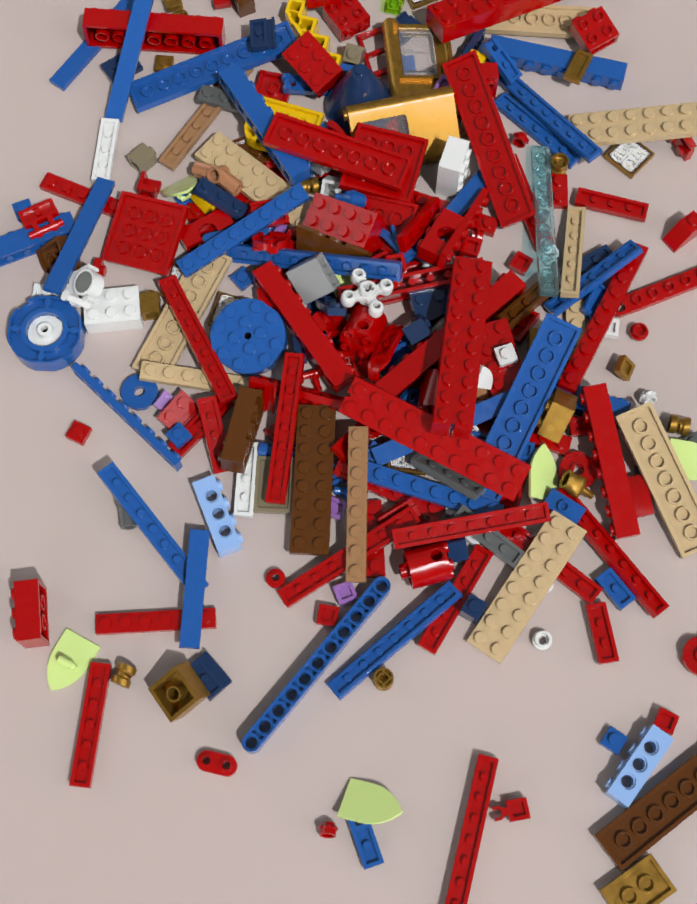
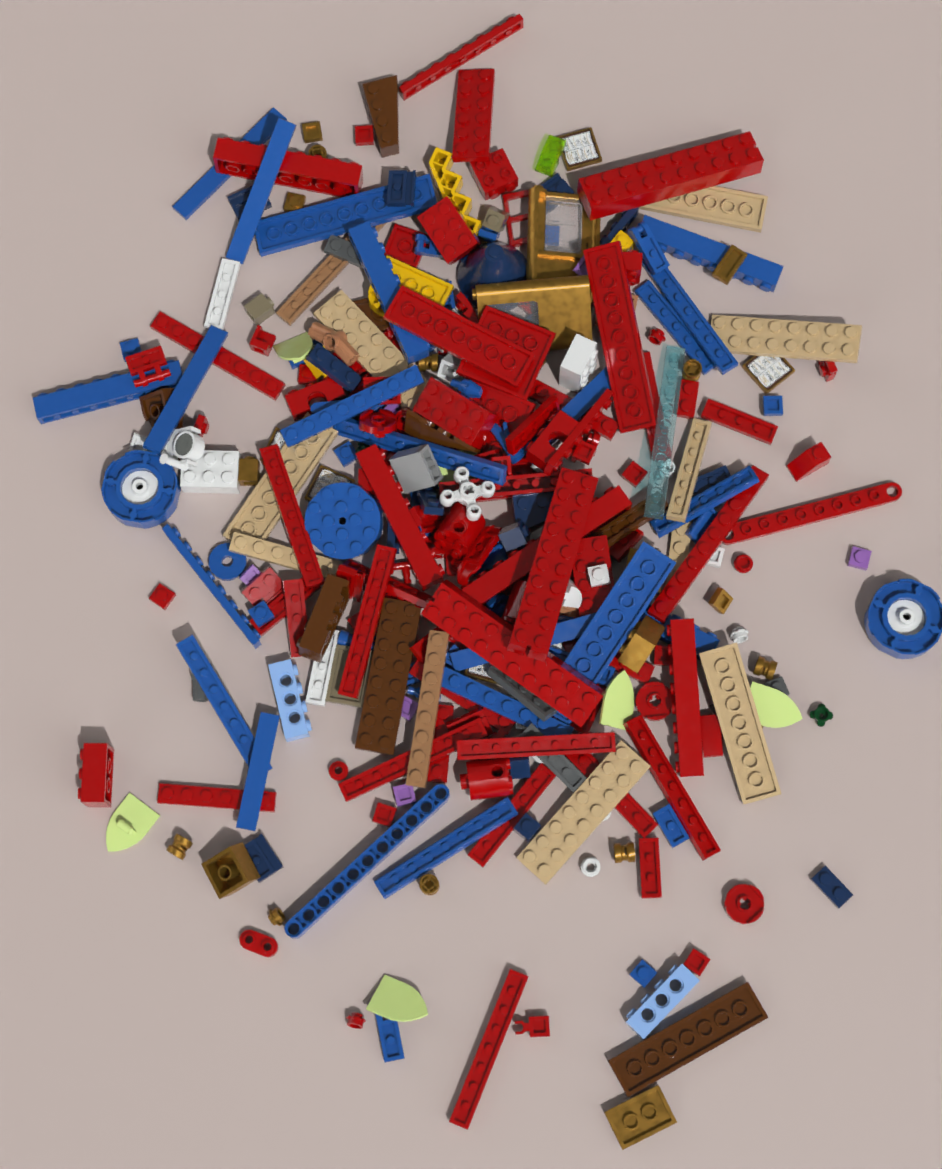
camera: 10 degrees right, 5 degrees up
(90, 725) = (142, 890): red plate -> none
(145, 233) = (252, 394): red plate -> none
(232, 733) = (276, 916): none -> pearl gold plate
(565, 506) = (633, 737): blue plate -> none
(574, 621) = (619, 852): none -> pearl gold wheel
(575, 485) = (648, 717): pearl gold piece -> none
(594, 31) = (753, 226): red brick -> none
(639, 187) = (772, 406): none -> blue plate

